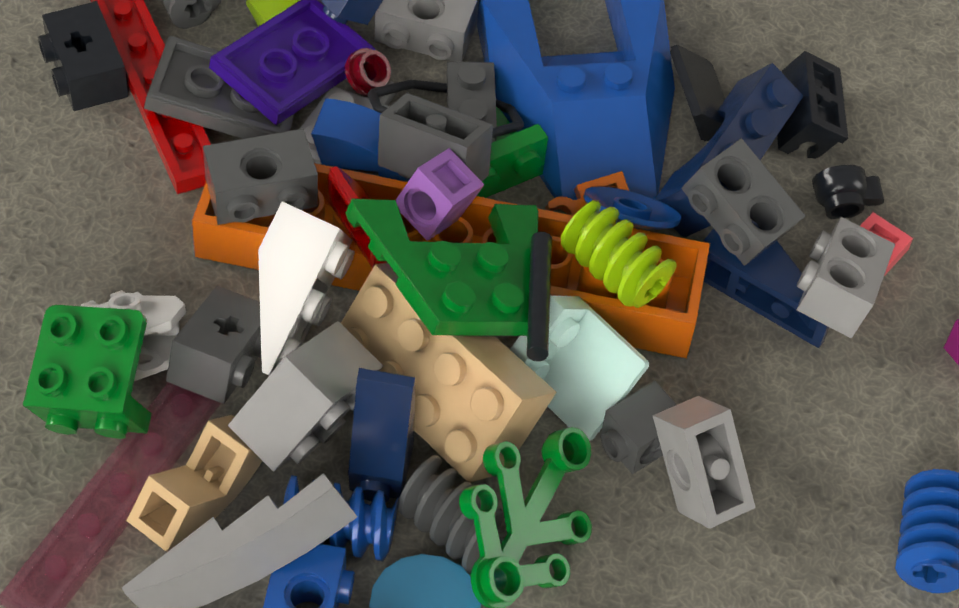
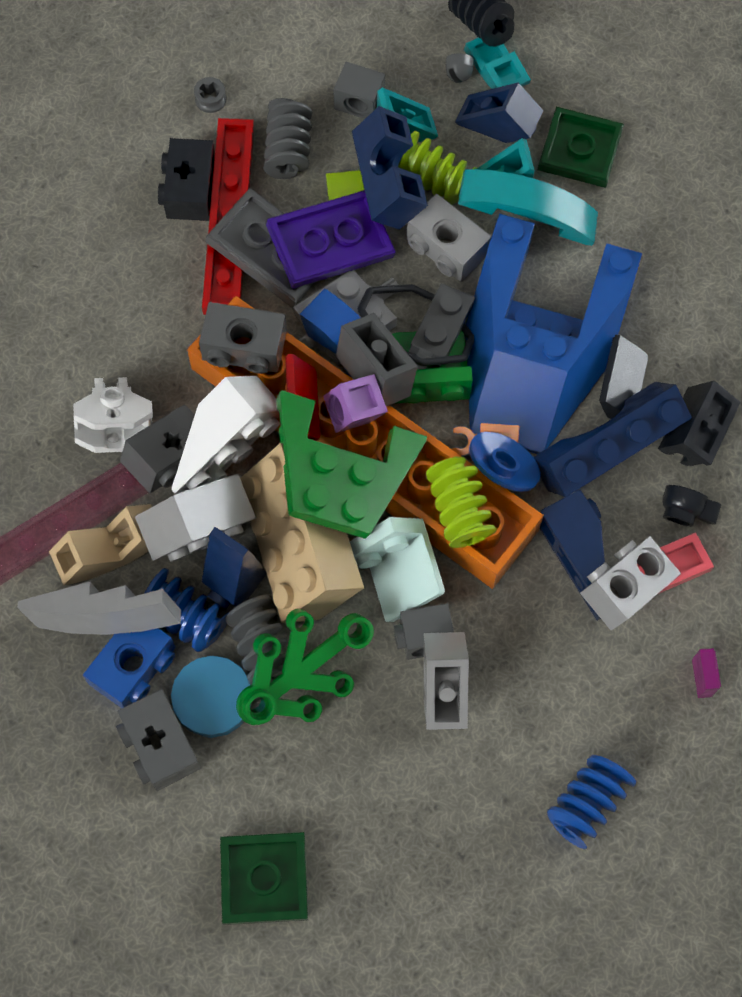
camera: 30 degrees right, 15 degrees up
(88, 371) = (65, 435): green bracket -> none
(376, 66) = (386, 273): dark red plate -> none
(539, 297) = (381, 515): black bar -> none
(750, 195) = (591, 491): dark grey brick -> none

